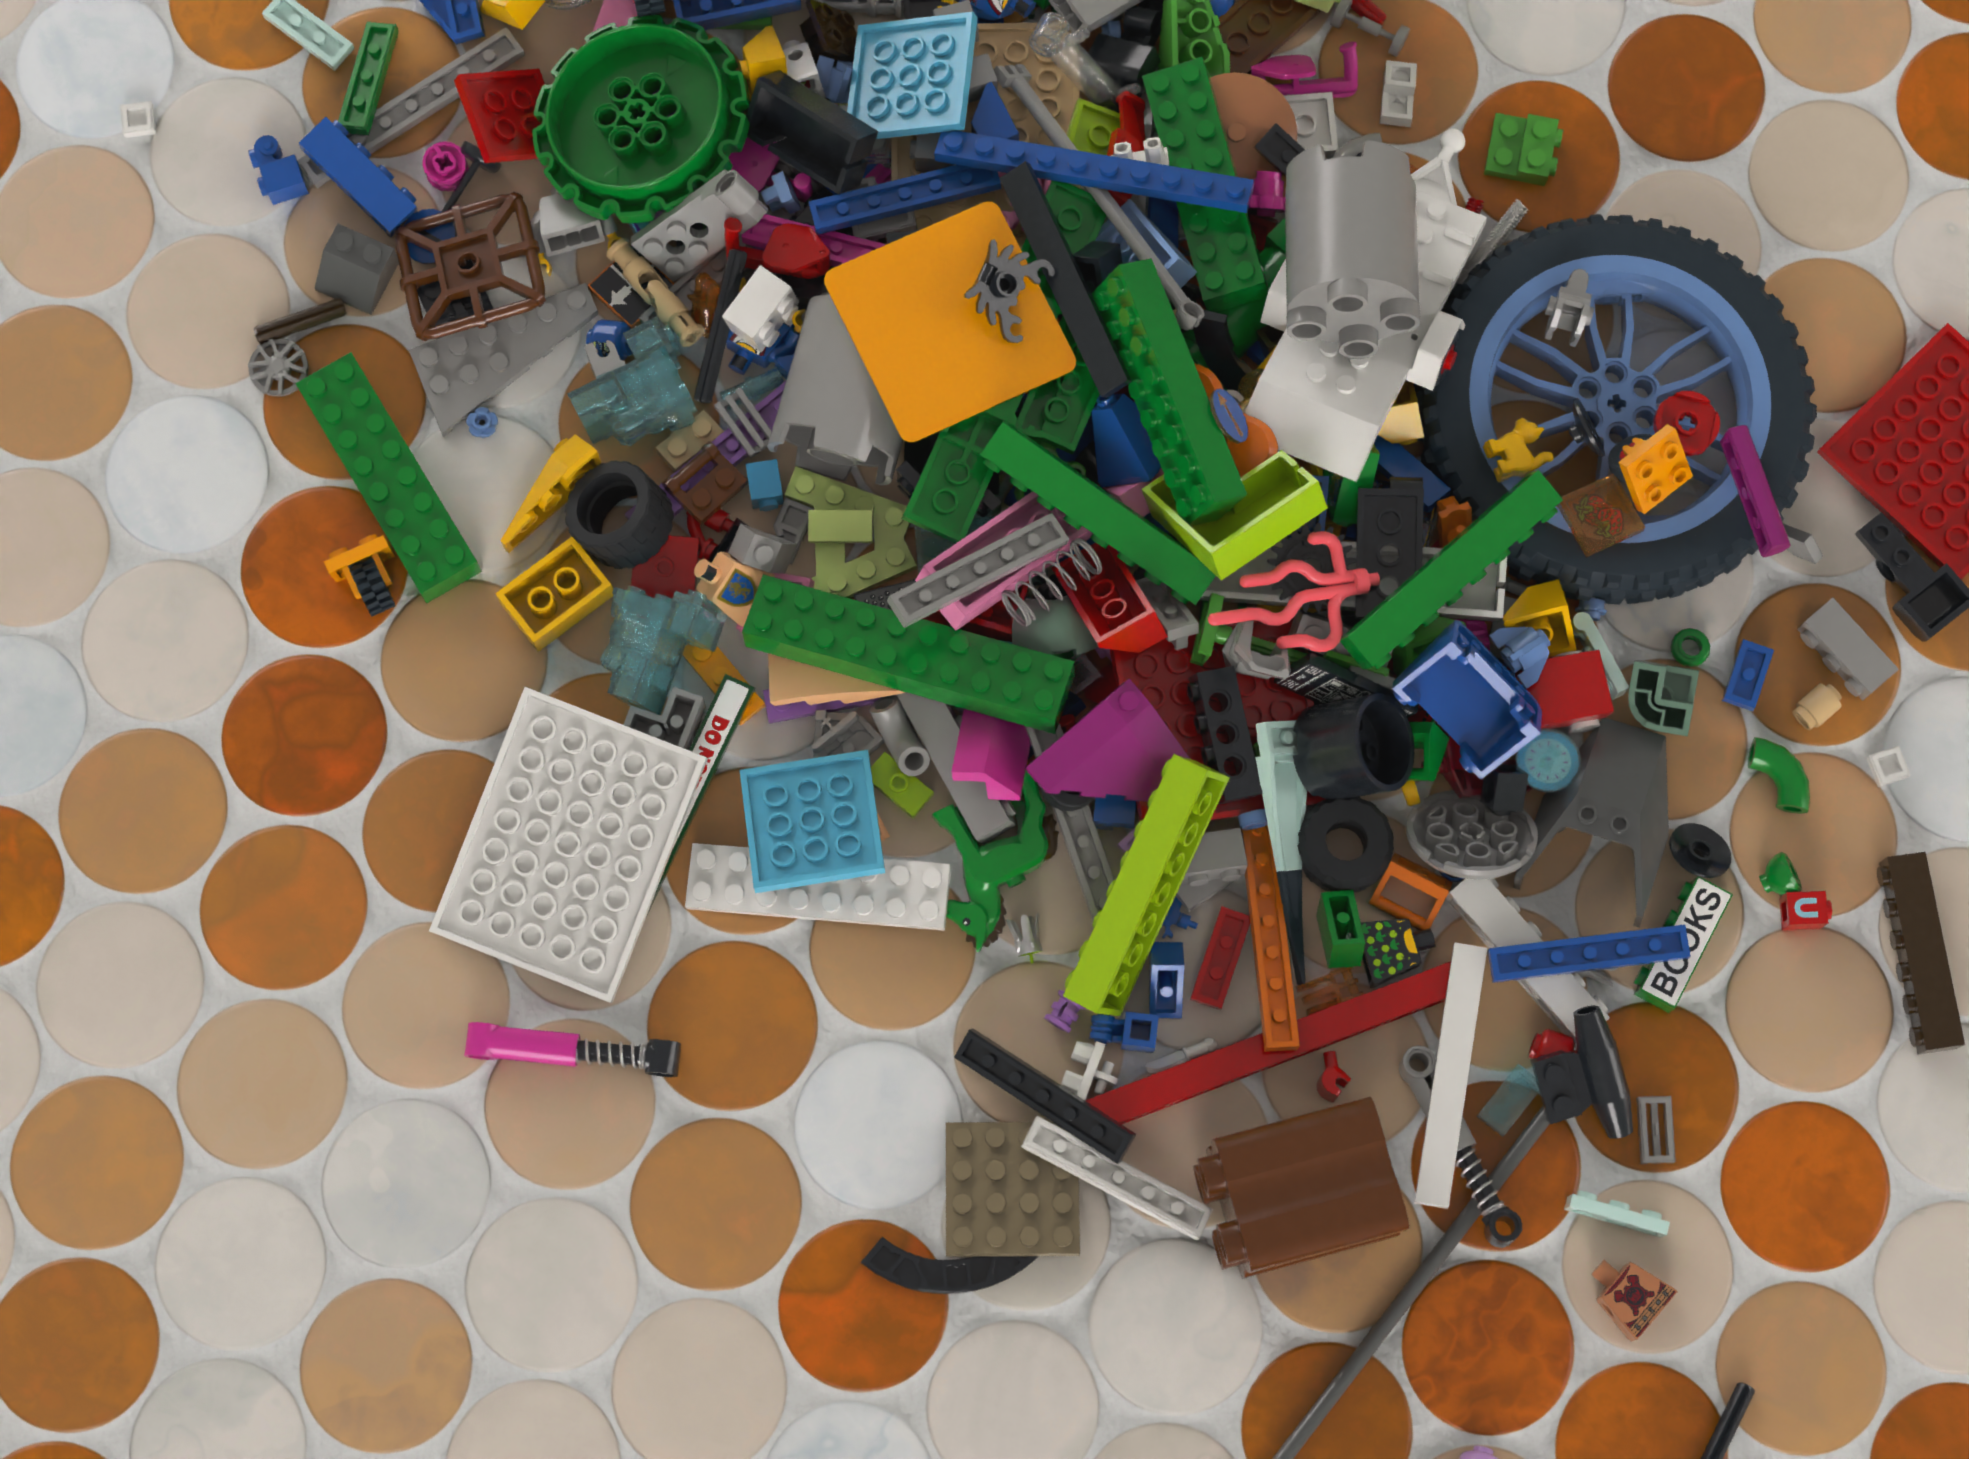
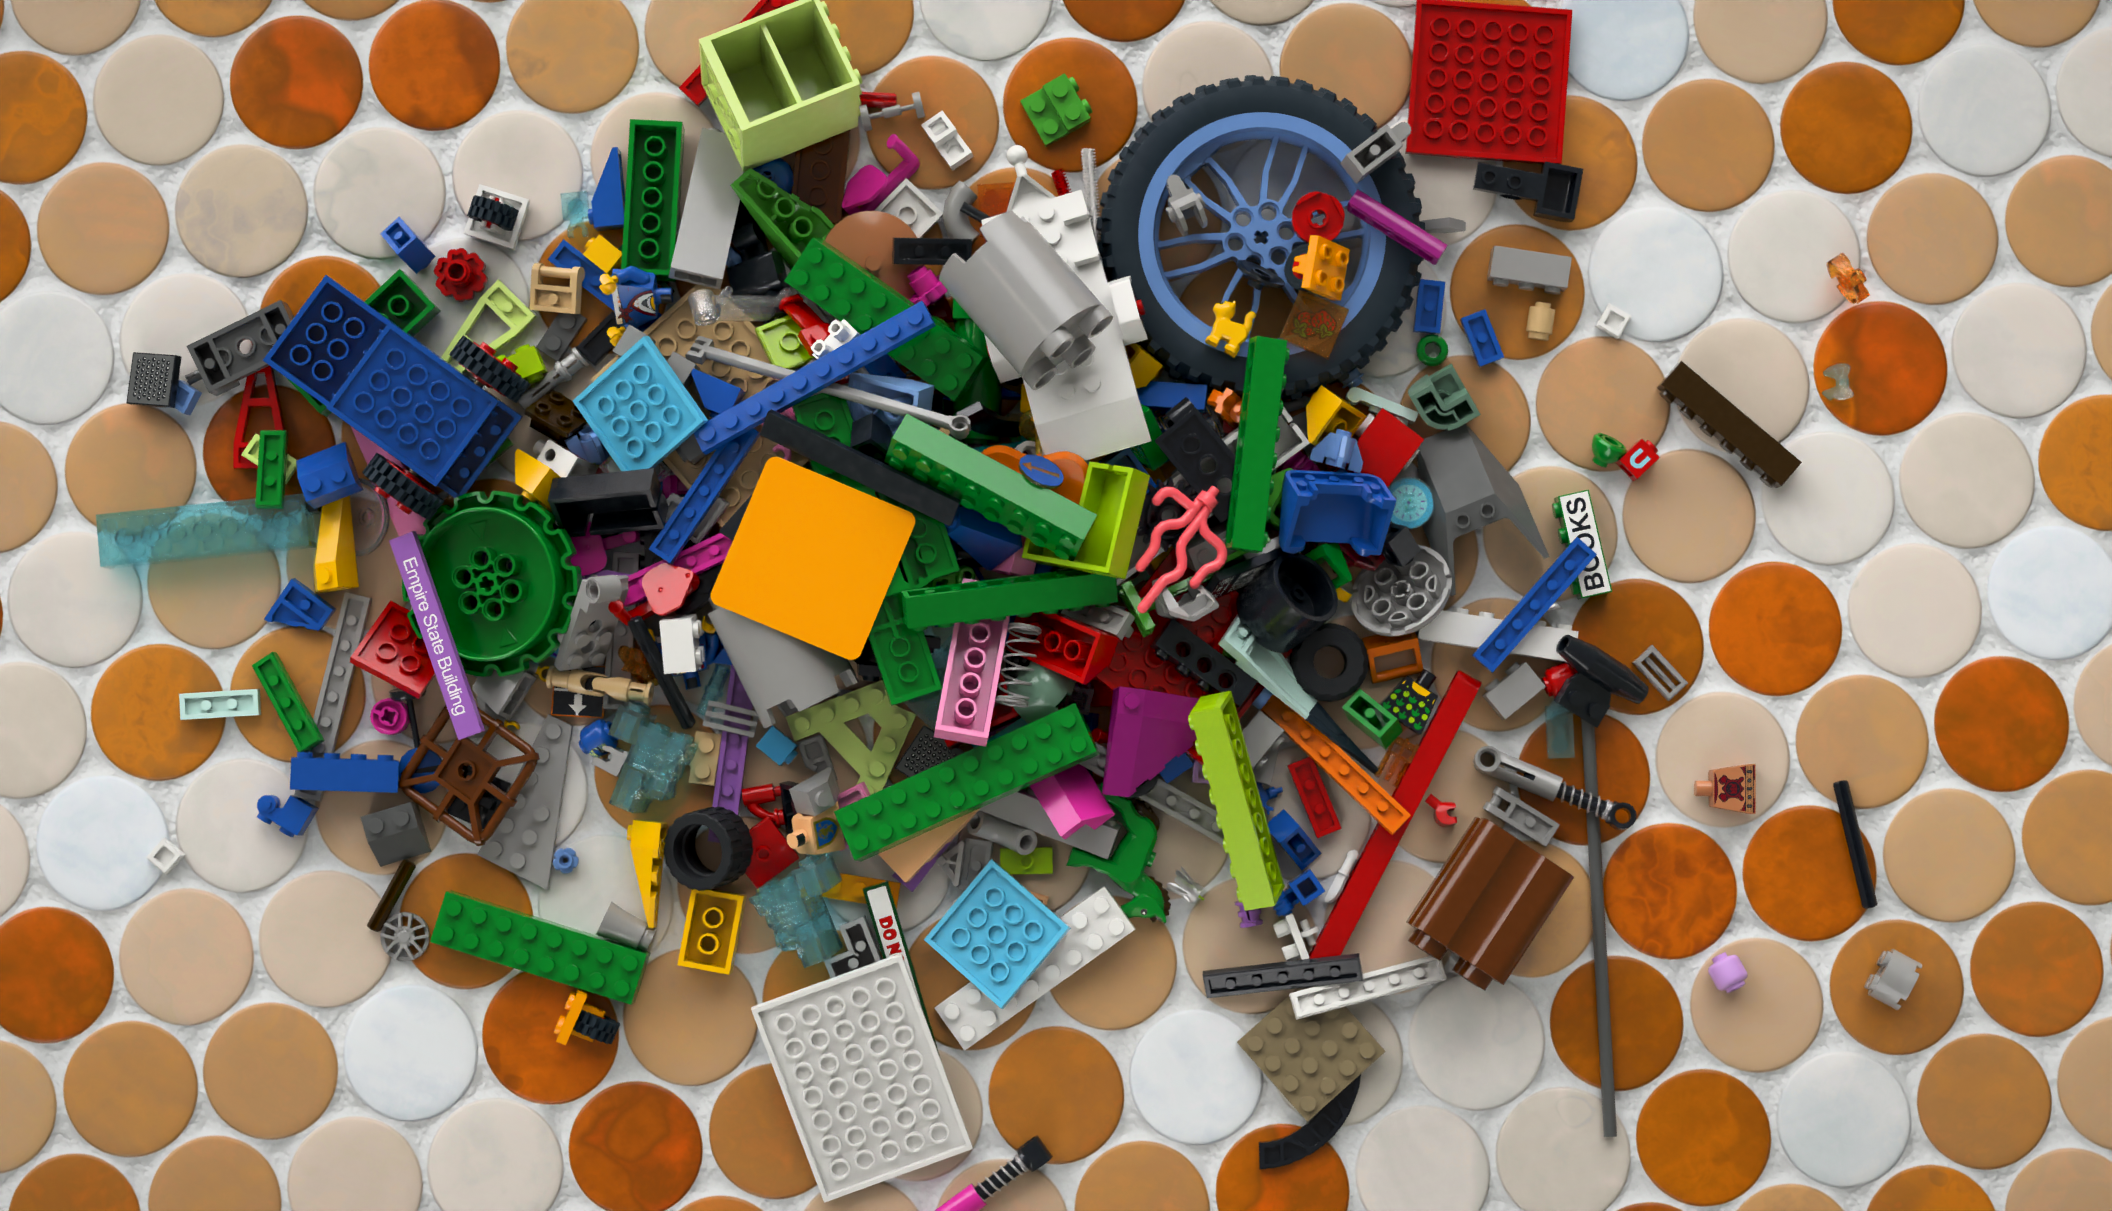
camera: 35 degrees left, 10 degrees up
(479, 526) = (625, 928): none -> light grey plant
(551, 118) = (437, 635): none -> medium lavender tile
(710, 492) = (750, 779): reddish brown plate -> none
(781, 194) = (622, 552): light blue tile -> none
(840, 526) = (848, 732): yellowish green tile -> none
(977, 570) = (971, 702): light grey plate -> none
(1000, 284) = (826, 511): animal -> none
(1402, 1145) = (1522, 817): none -> light grey plate
(1450, 1076) = (1514, 752): white tile -> none
(1505, 1022) = (1513, 690): none -> light grey brick
(1617, 1213) = (1680, 745): light aqua plate -> none
(1700, 850) = (1545, 469): black dish -> none
(1721, 604) = (1429, 306): none -> blue plate
(1786, 773) = (1556, 381): green cylinder -> none
(1793, 404) = (1375, 151): none -> light grey hinge

